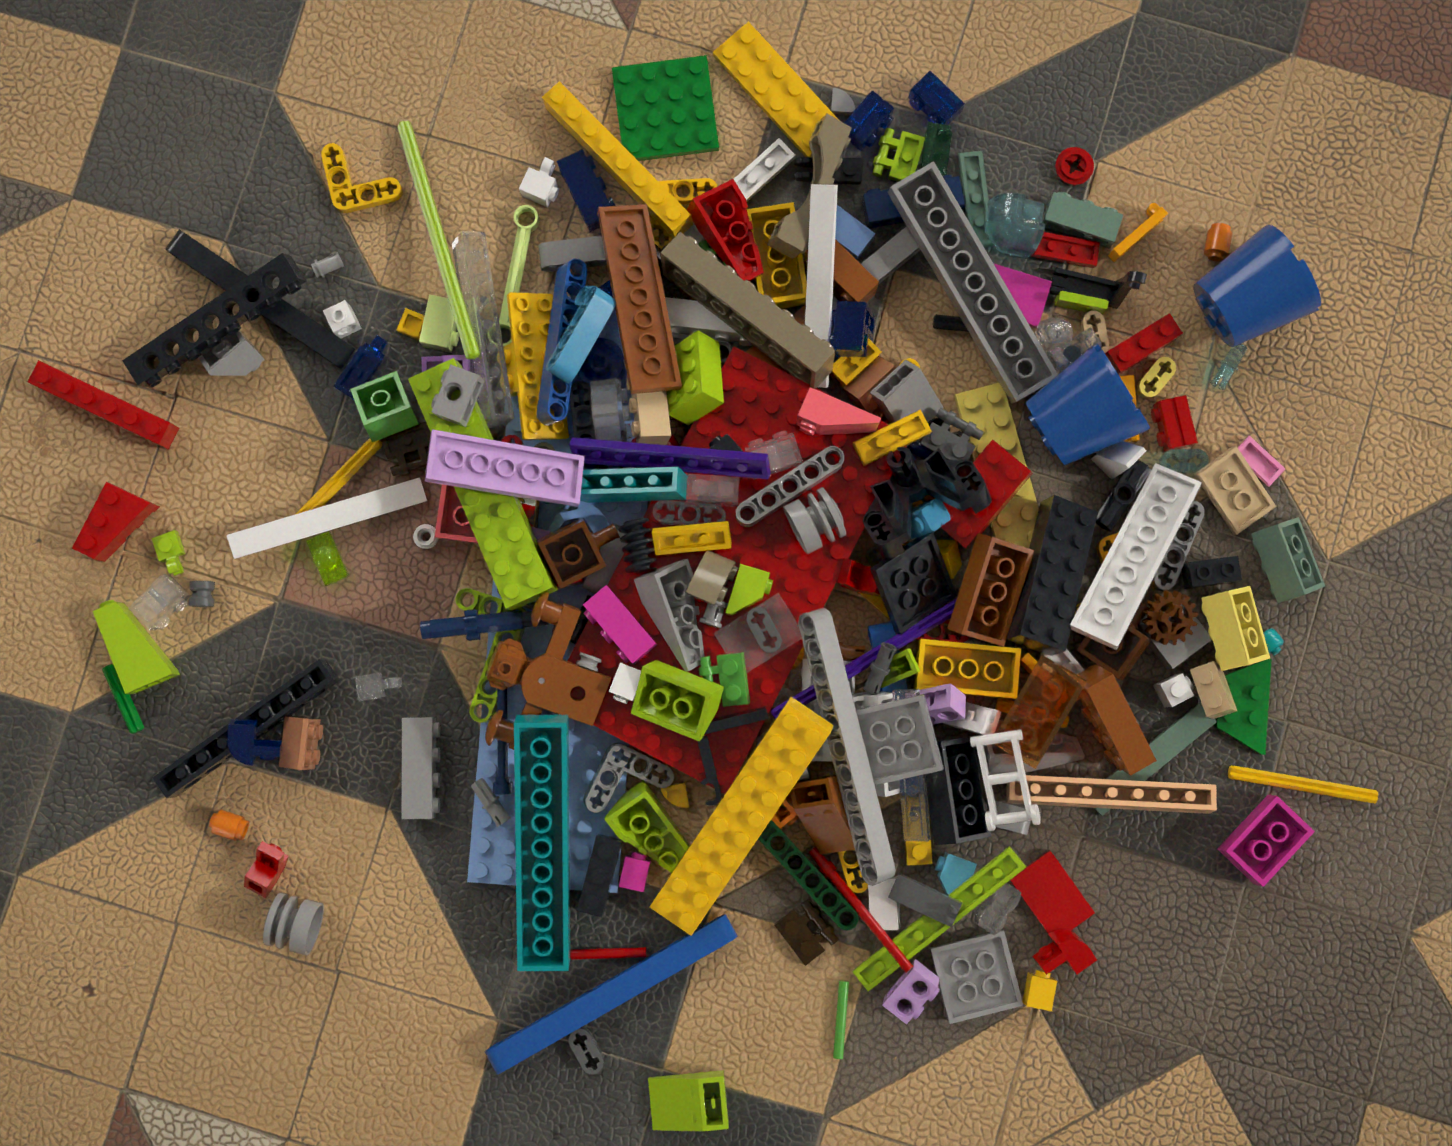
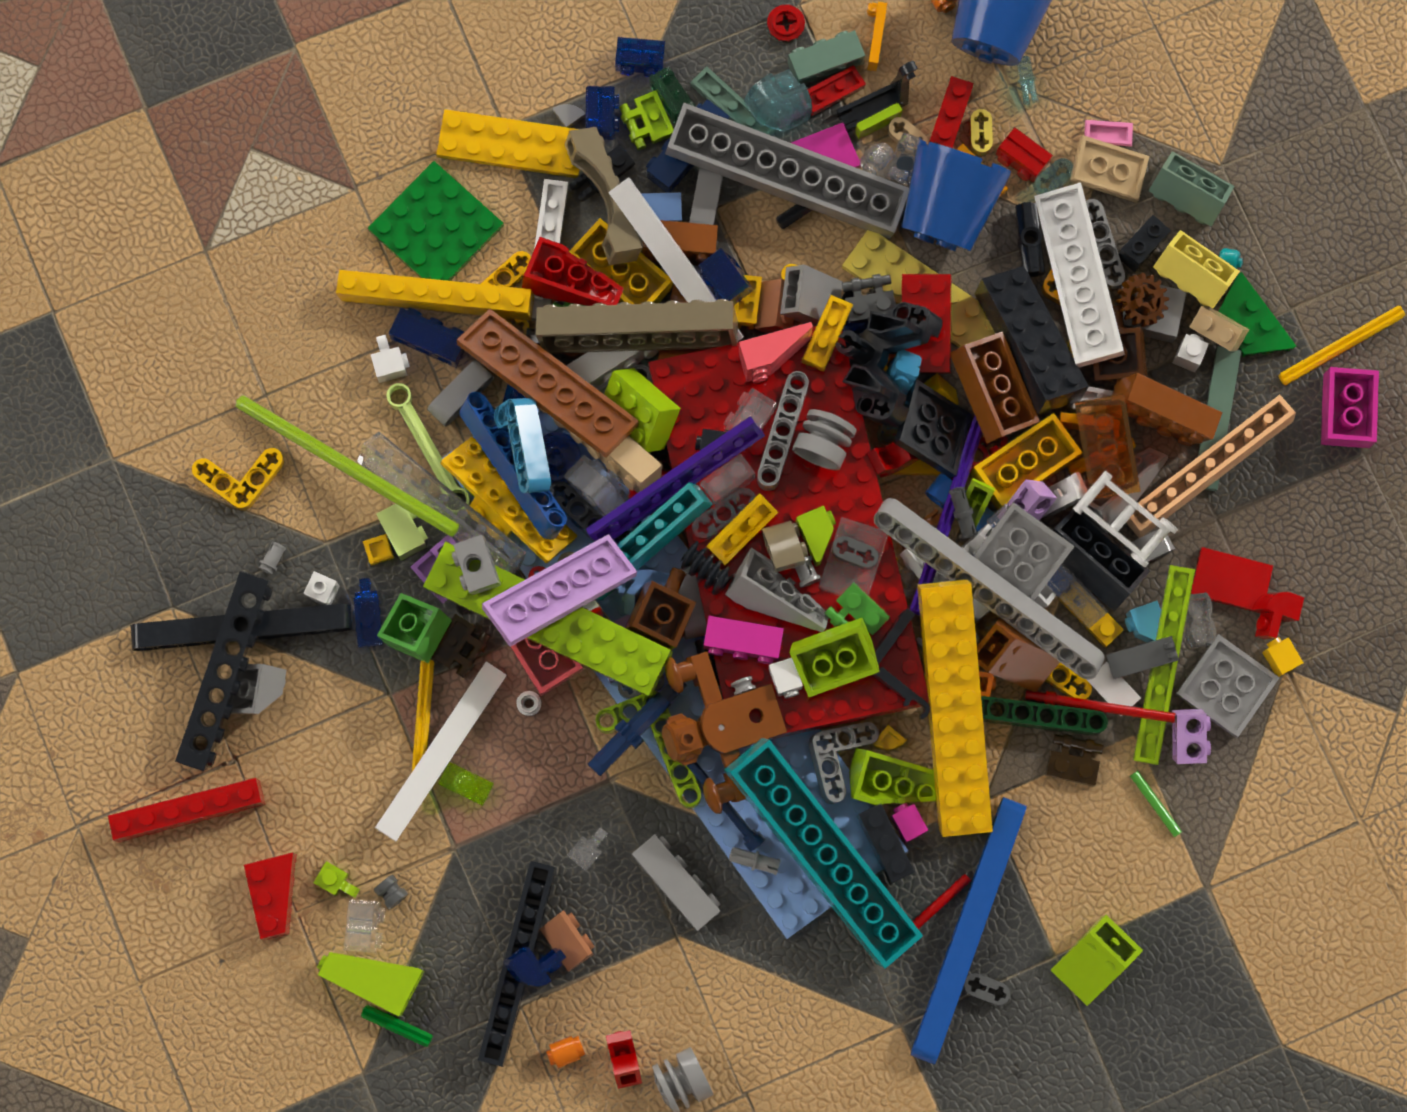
camera: 45 degrees left, 5 degrees down
(1118, 458) = (1005, 214): white slope -> none

